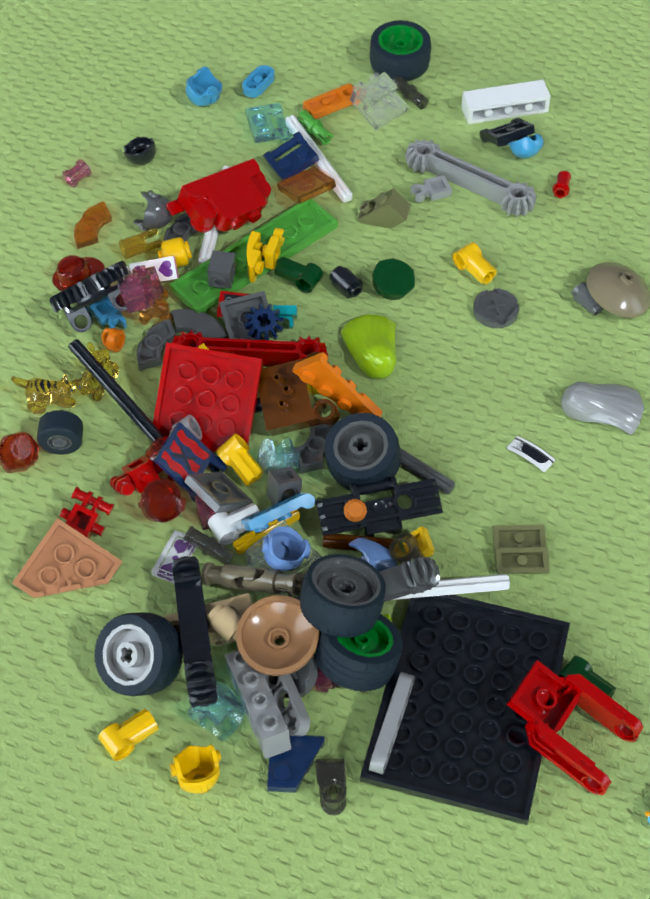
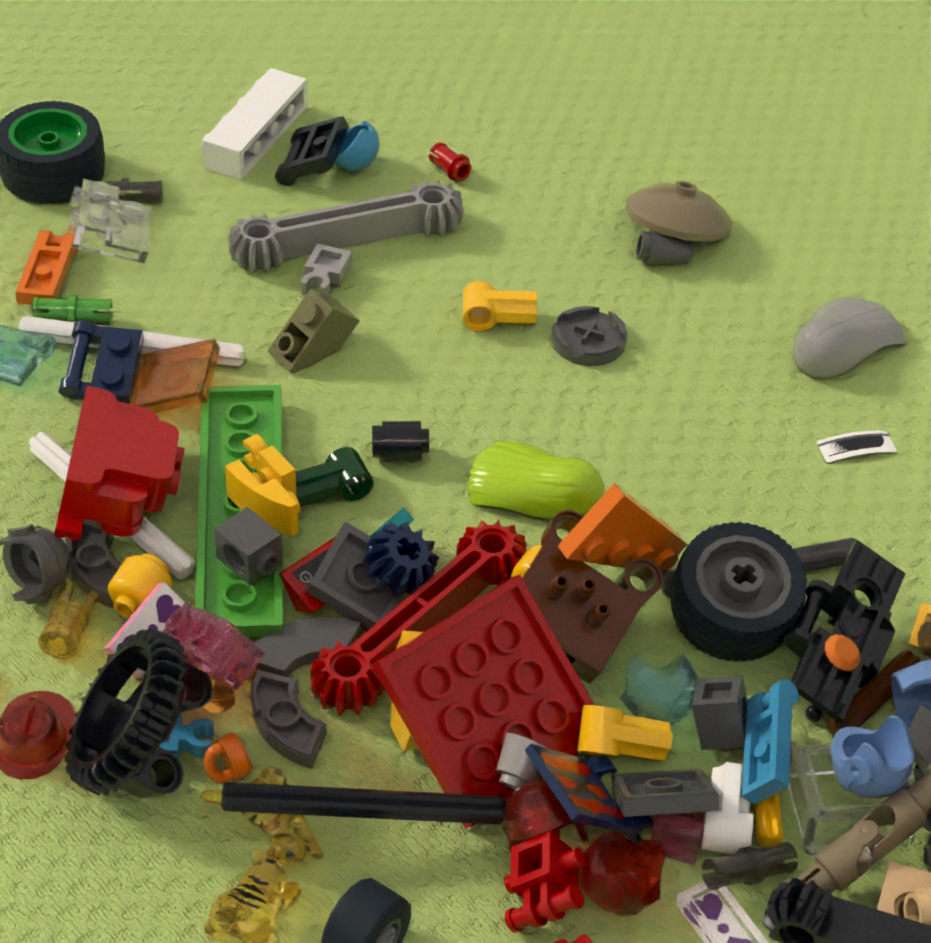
camera: 55 degrees left, 10 degrees down
(313, 449) = (655, 638): dark grey tile -> none
(393, 279) = (445, 395): dark green hat -> none

